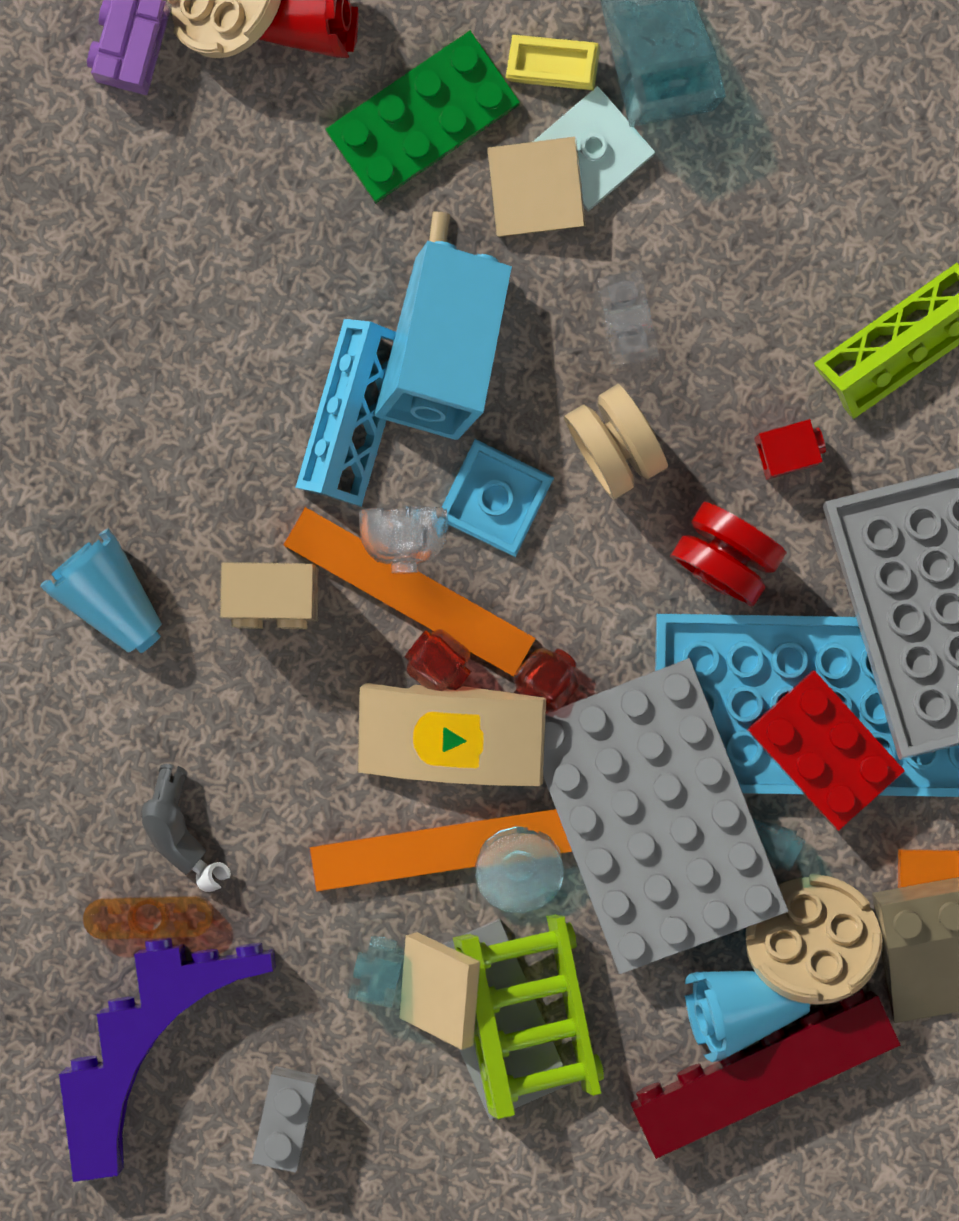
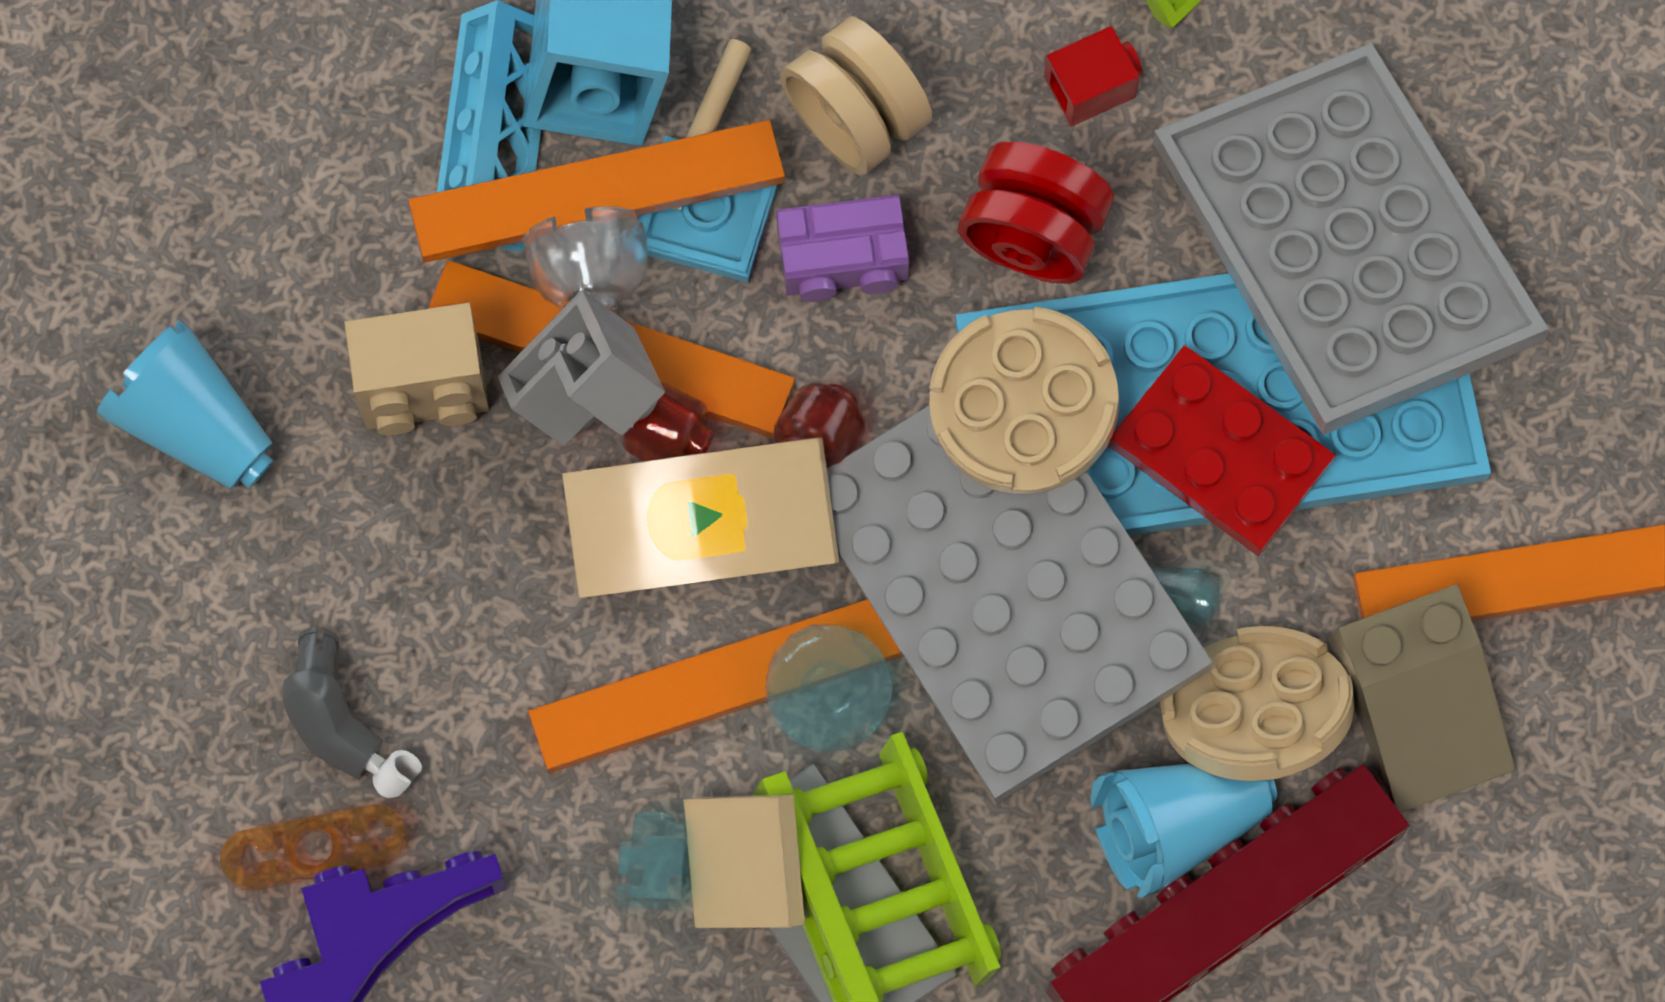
camera: 10 degrees left, 15 degrees down
(386, 621) = (582, 370): none -> light grey brick
(417, 482) = (635, 179): none -> orange tile
(504, 438) = (720, 89): none -> tan bar
(586, 547) = (843, 247): none -> medium lavender brick
(693, 698) = (1024, 400): none -> tan tile

